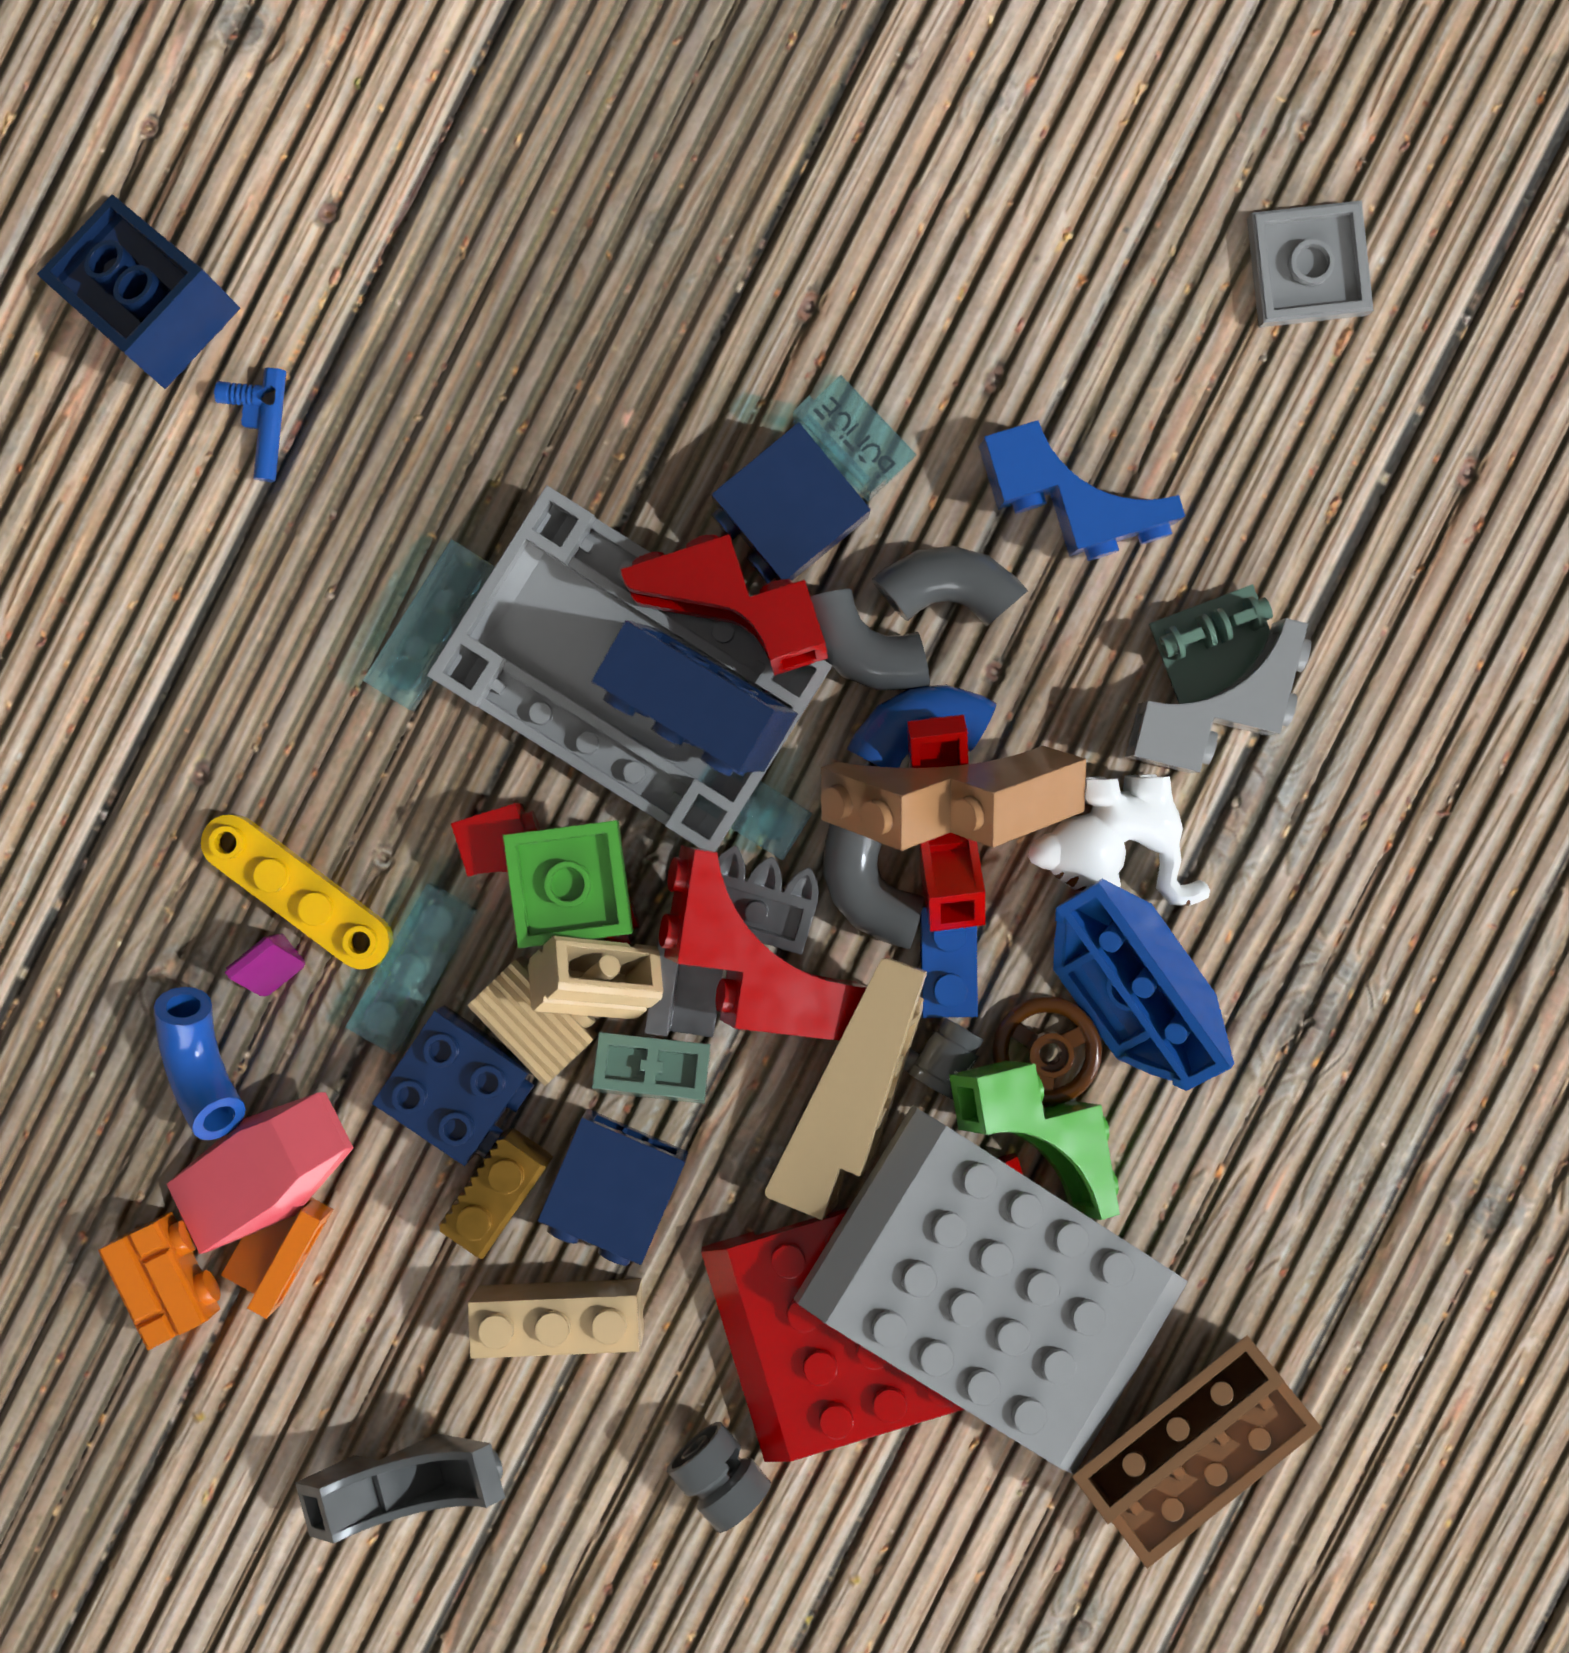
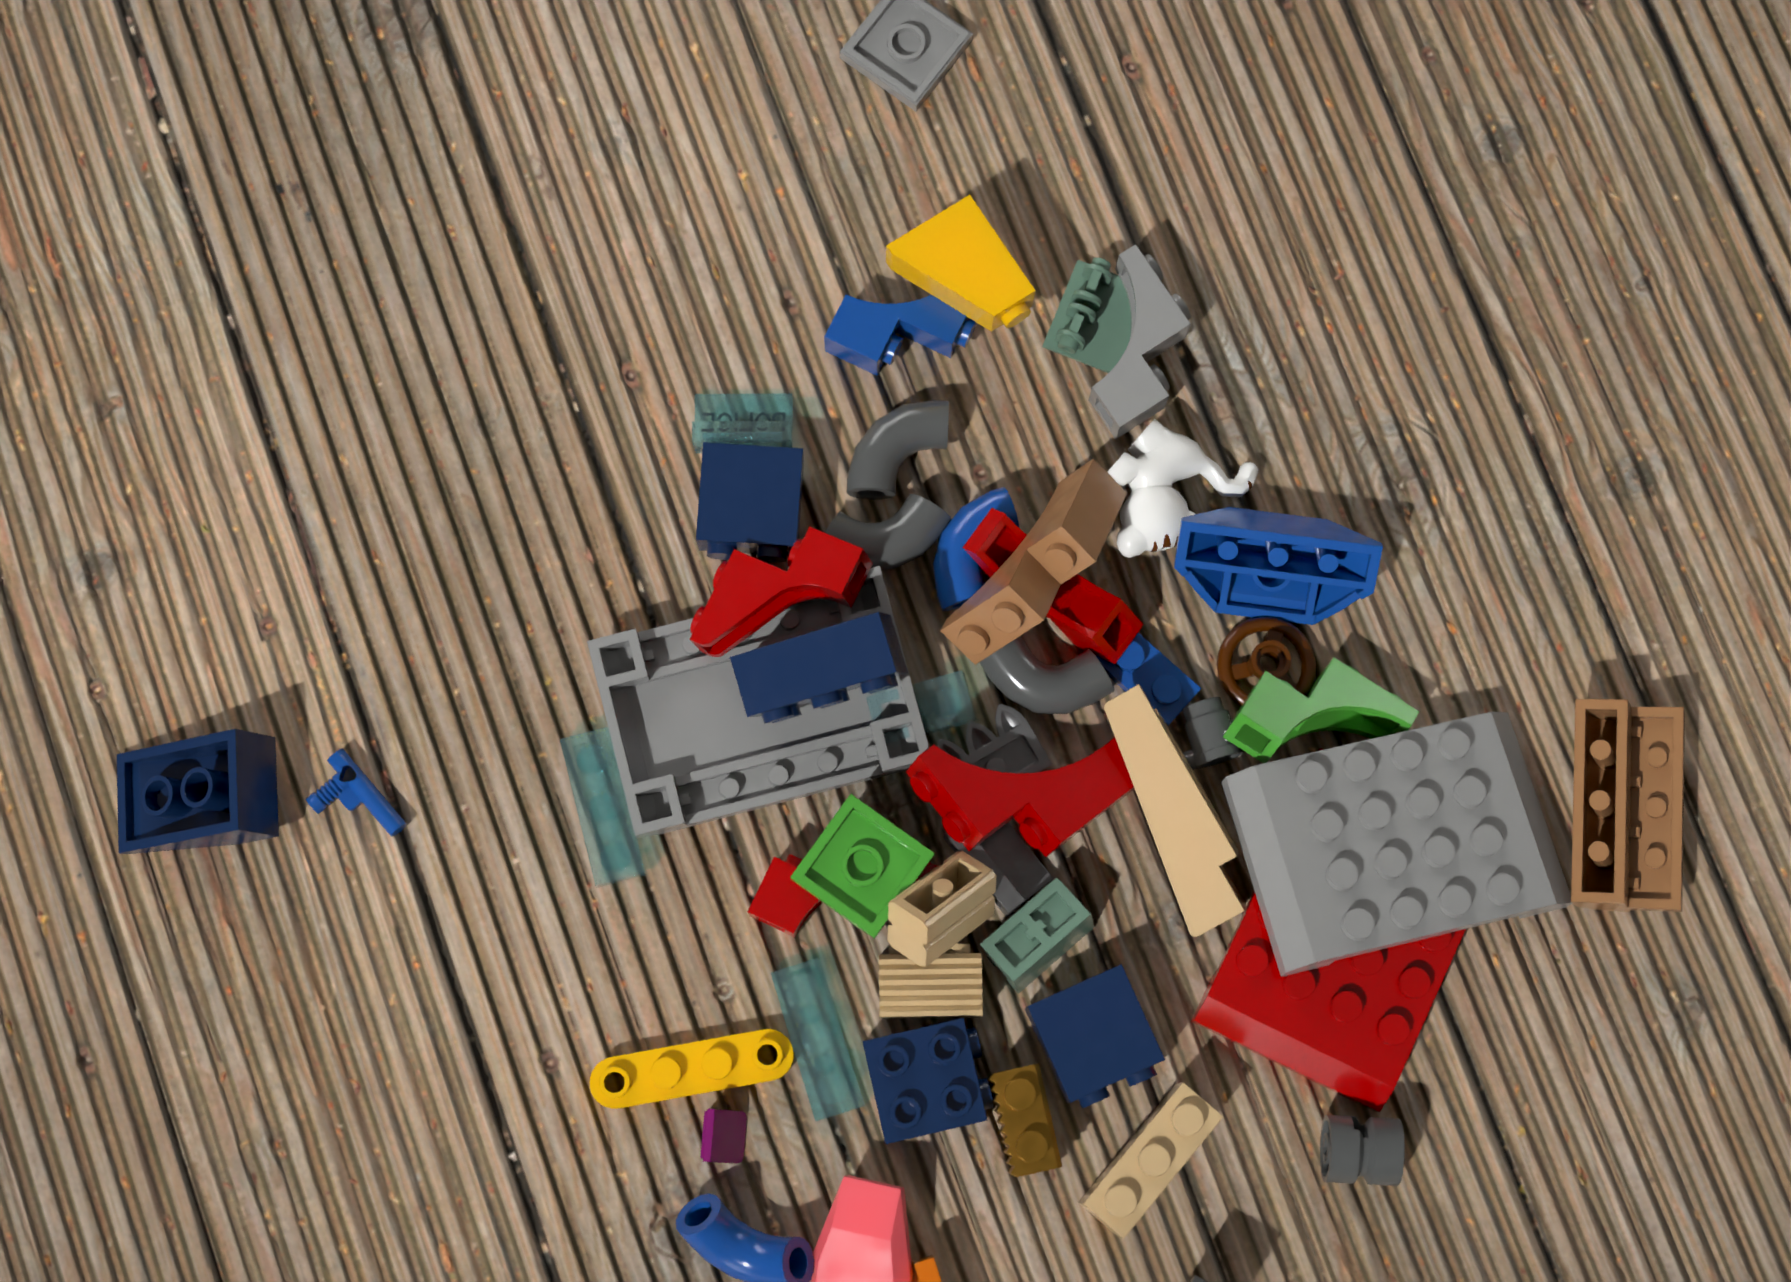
camera: 45 degrees left, 10 degrees down
(1154, 497) = (964, 266): none -> yellow slope

